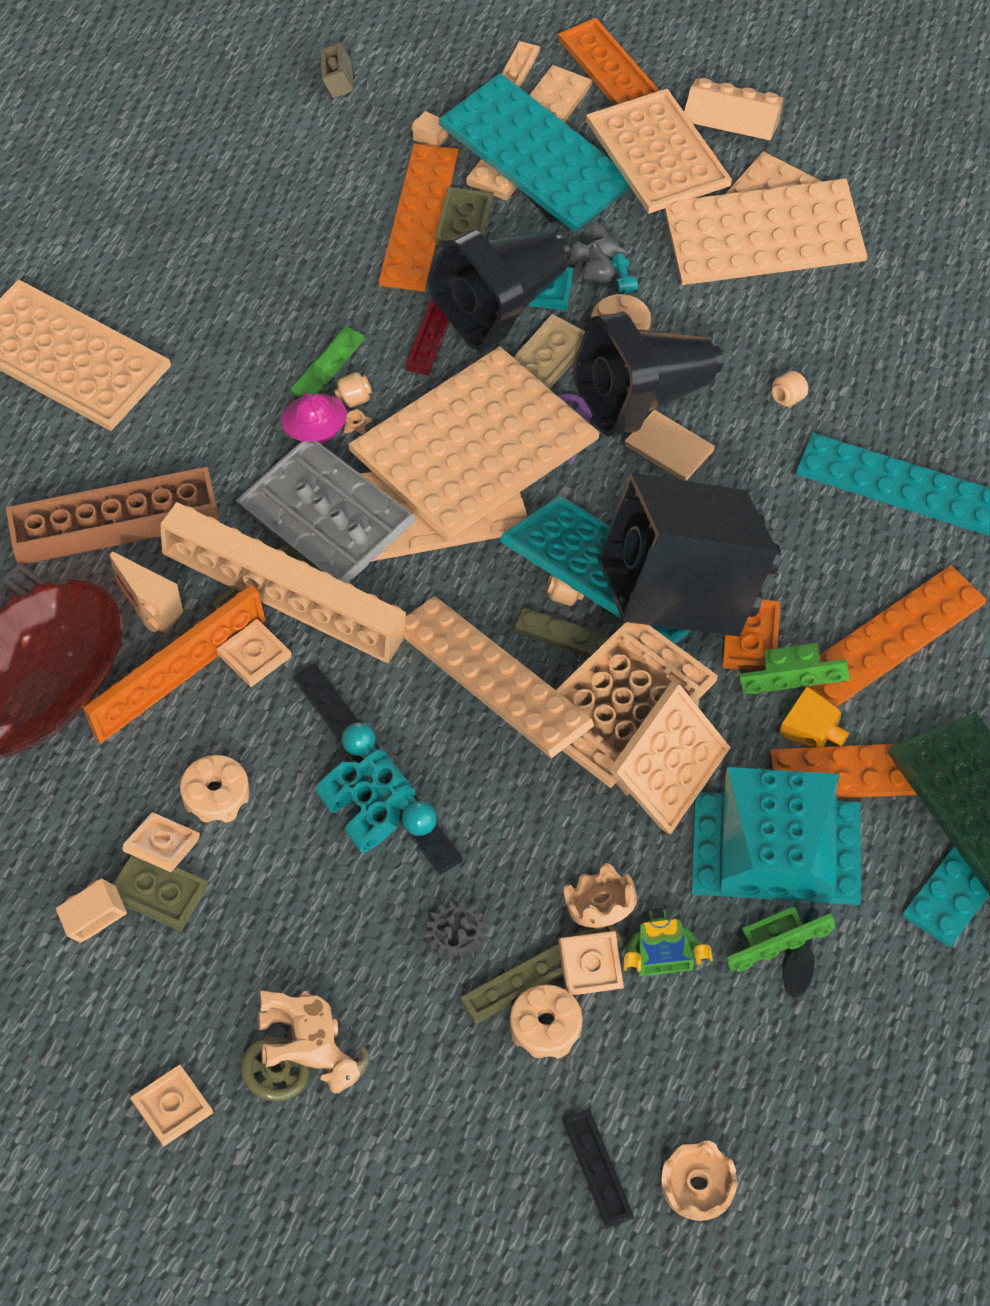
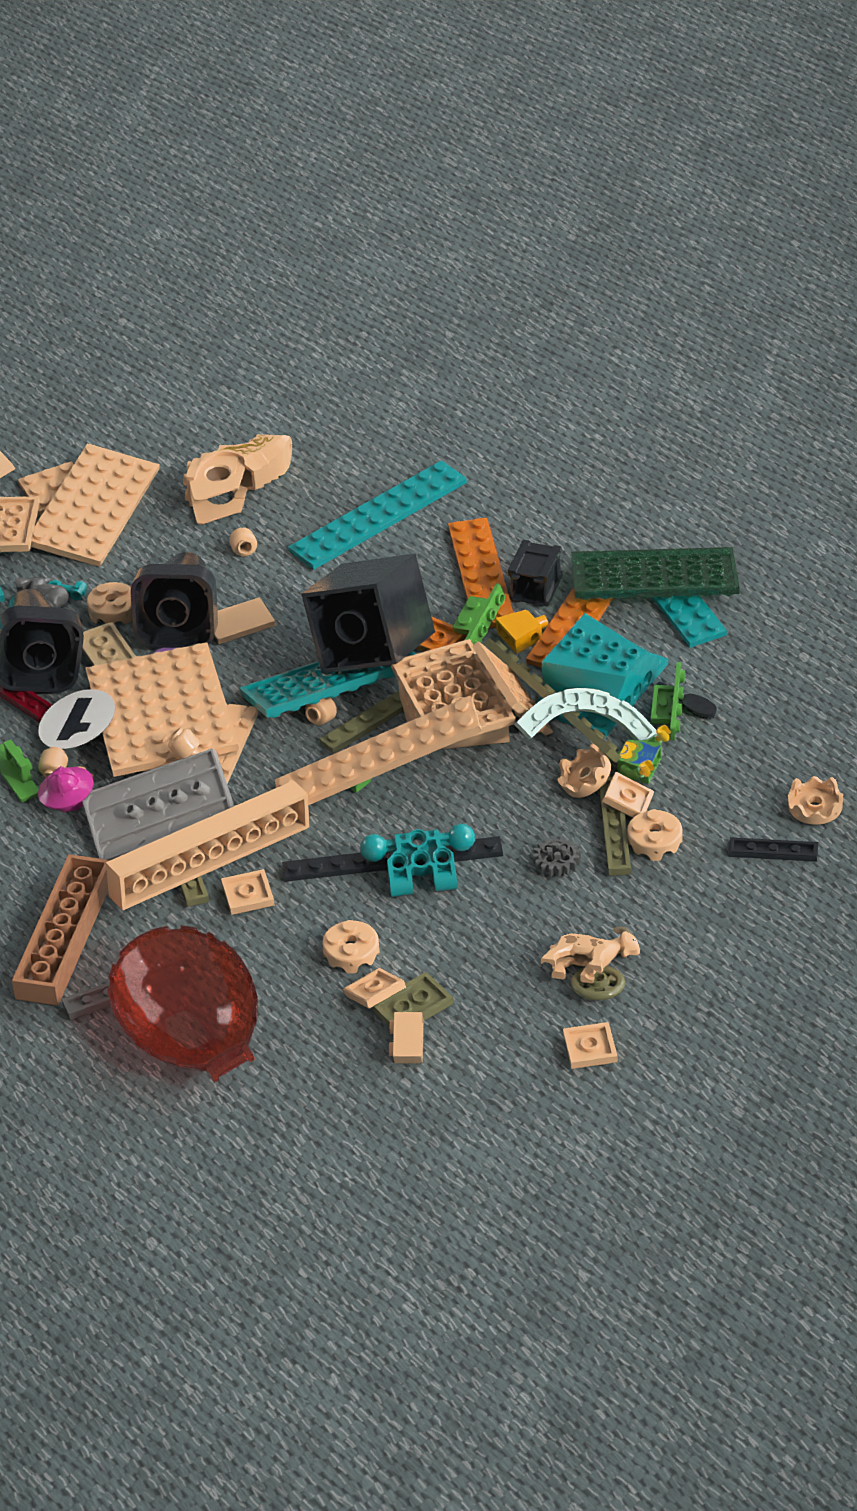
camera: 60 degrees left, 15 degrees down
(150, 594) = (158, 914): light nougat slope -> none
(171, 665) = (220, 900): orange plate -> none
(404, 485) = (183, 743): none -> light nougat head
(416, 376) = (76, 719): none -> white sticker
(691, 842) = (585, 700): none -> light aqua plate
(693, 811) = (535, 681): none -> olive plate
(894, 322) = (234, 470): none -> light nougat animal
(907, 691) = (535, 573): none -> black container

